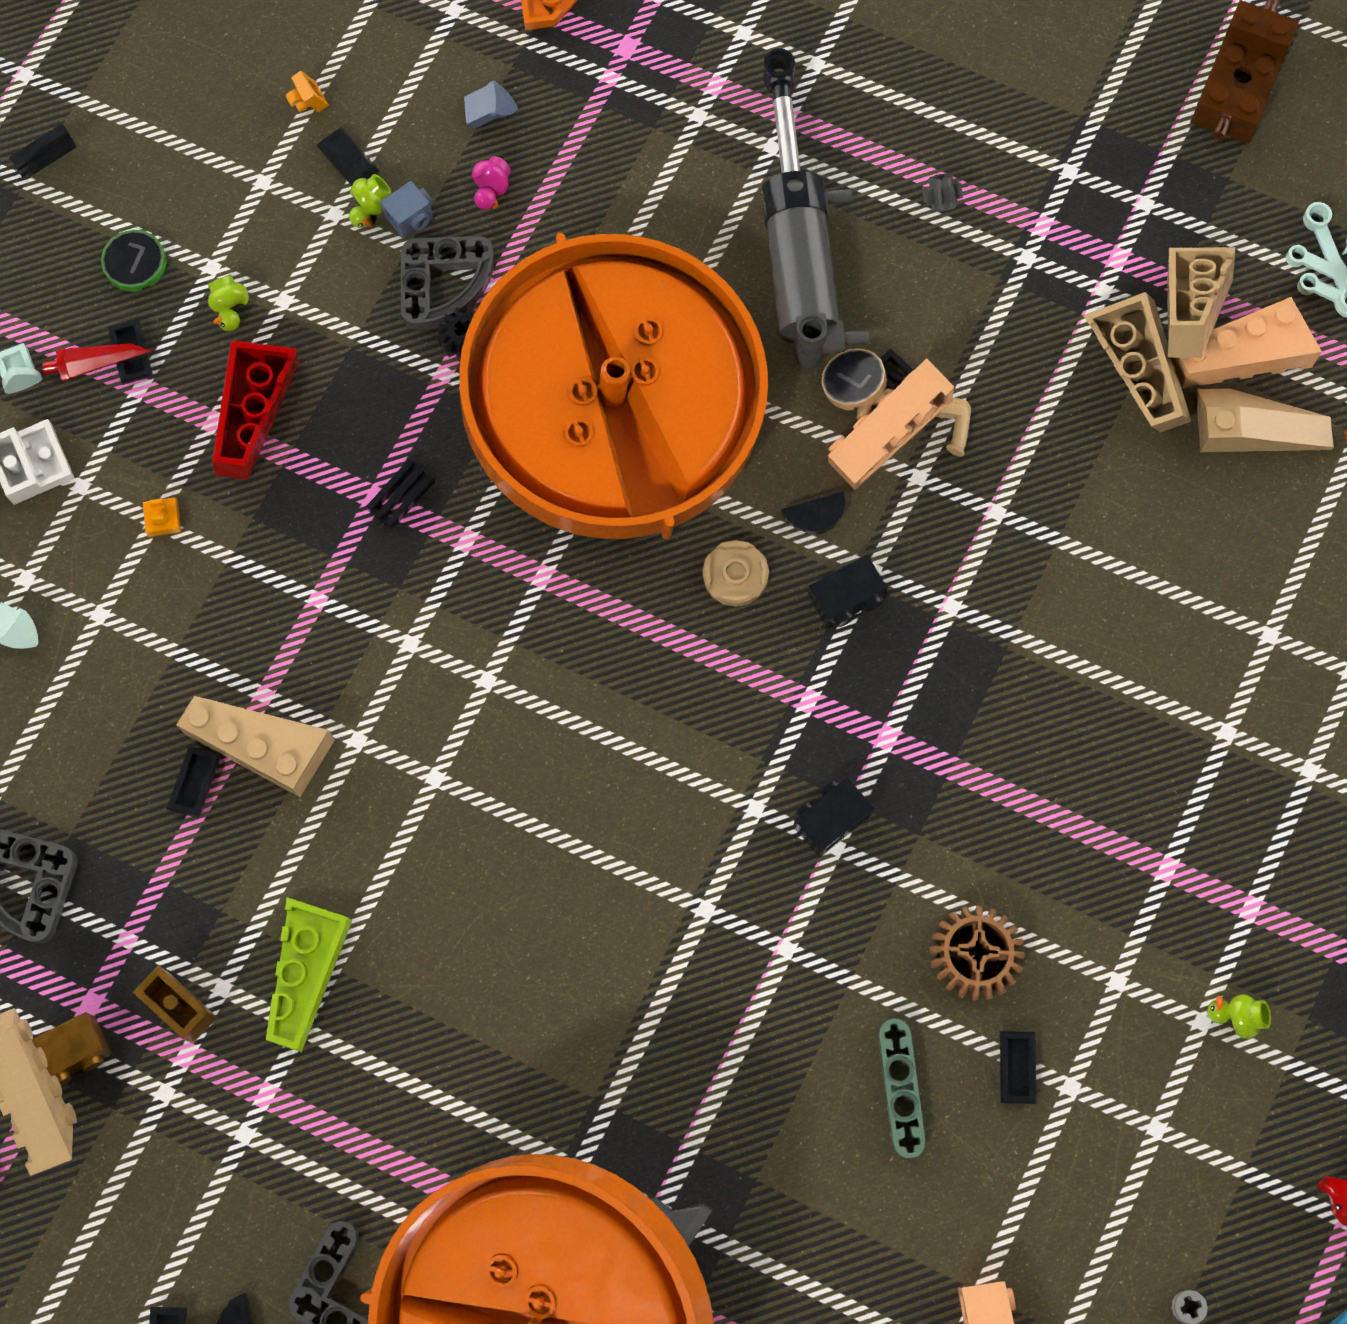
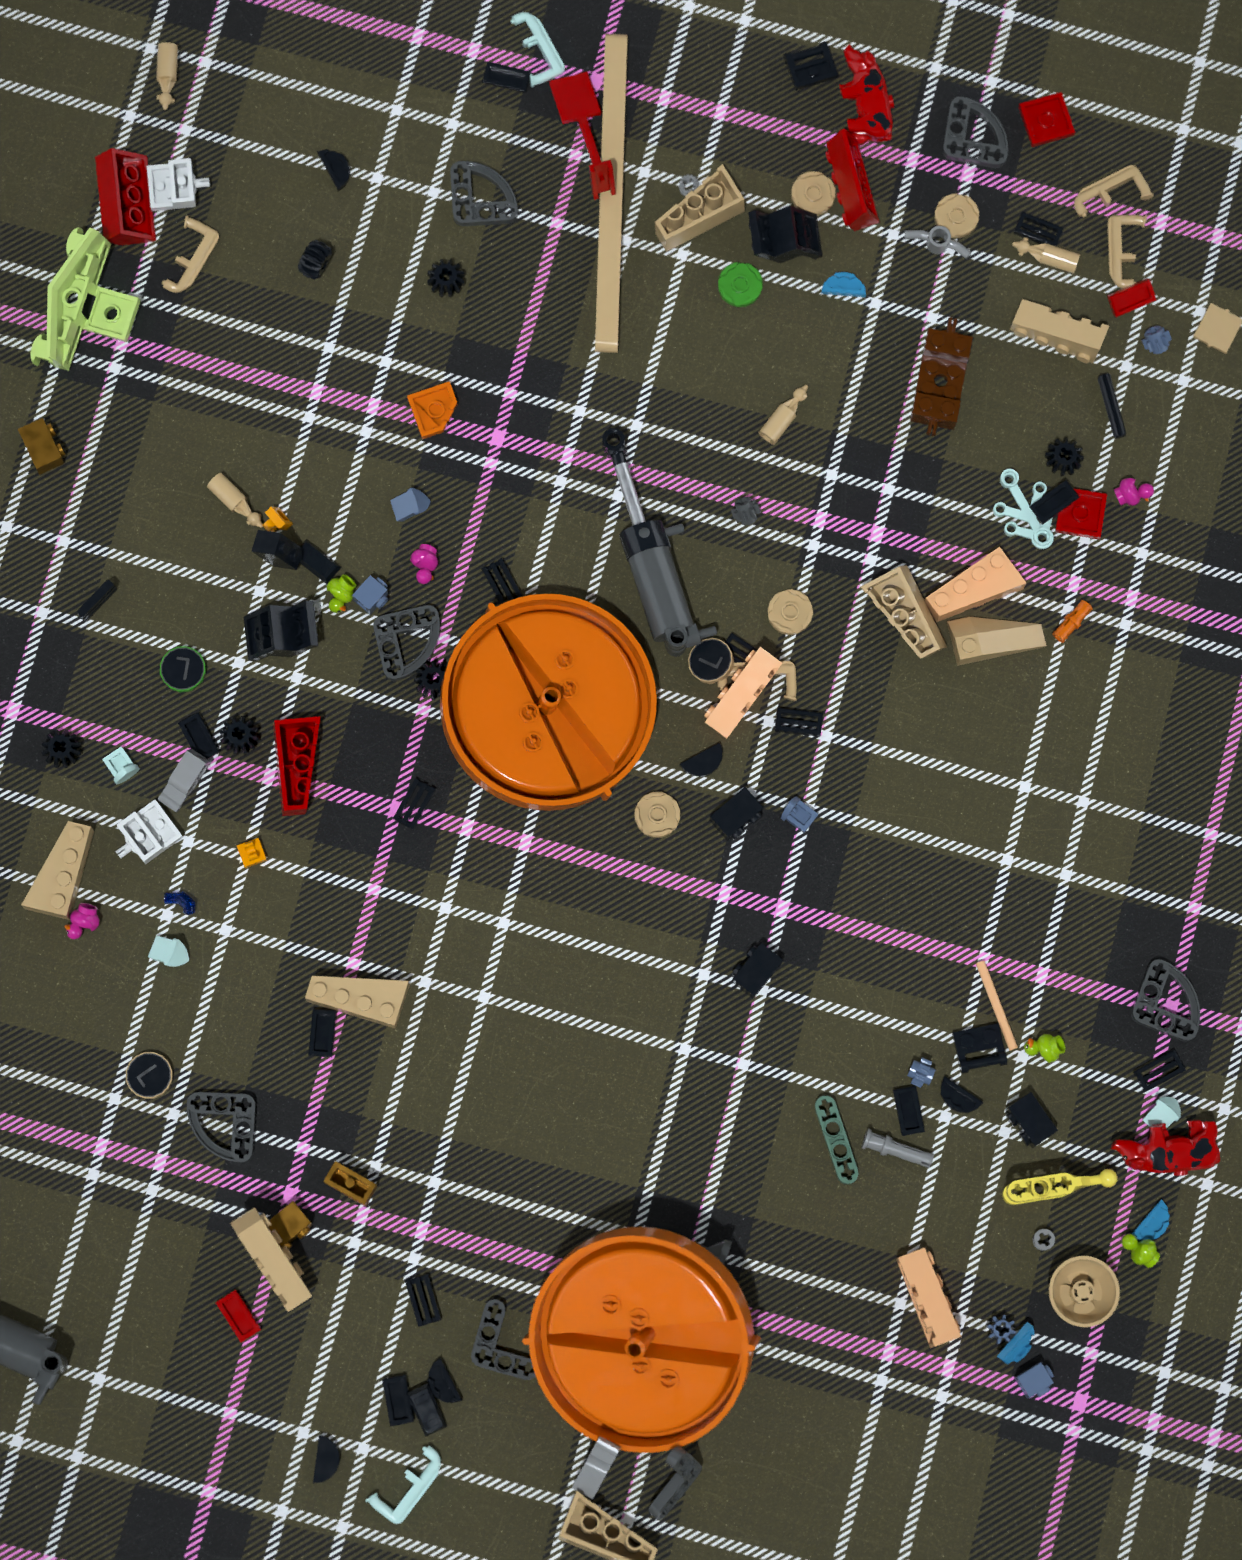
camera: 20 degrees left, 5 degrees up
(49, 560) = (182, 899): none -> clear blue arm
(82, 360) = (166, 751): red bar -> none
(94, 400) = (184, 779): none -> light grey piece
(196, 359) = (233, 742): none -> black gear
(223, 296) = (256, 685): lime animal -> none
(226, 1196) = (417, 1280): none -> black tile
(256, 57) = (233, 499): none -> tan wheel
(274, 230) = (280, 631): none -> black bracket
(294, 125) = (277, 550): none -> black brick
(307, 959) = (428, 1143): lime wing -> none
(582, 206) = (493, 566): none -> black tile
(936, 610) = (799, 814): none -> sand blue tile
(956, 496) = (817, 733): none -> black tile
(962, 951) = (857, 1043): medium nougat gear -> none
(975, 1113) = (886, 1145): none -> light grey pin
(977, 337) = (790, 612): none -> tan tile
(1016, 84) = (782, 417): none -> tan wheel
(1047, 1014) = (921, 1072): none -> sand blue gear
(1094, 1063) = (958, 1098): none -> black tile
(1140, 984) = (979, 1040): none -> black plate
(1176, 939) = (996, 1004): none -> light nougat bar
(1195, 295) = (934, 559): tan wedge -> none
(1200, 1120) = (1030, 1120): none -> black brick
(1248, 1228) = (1107, 1178): none -> light yellow piece

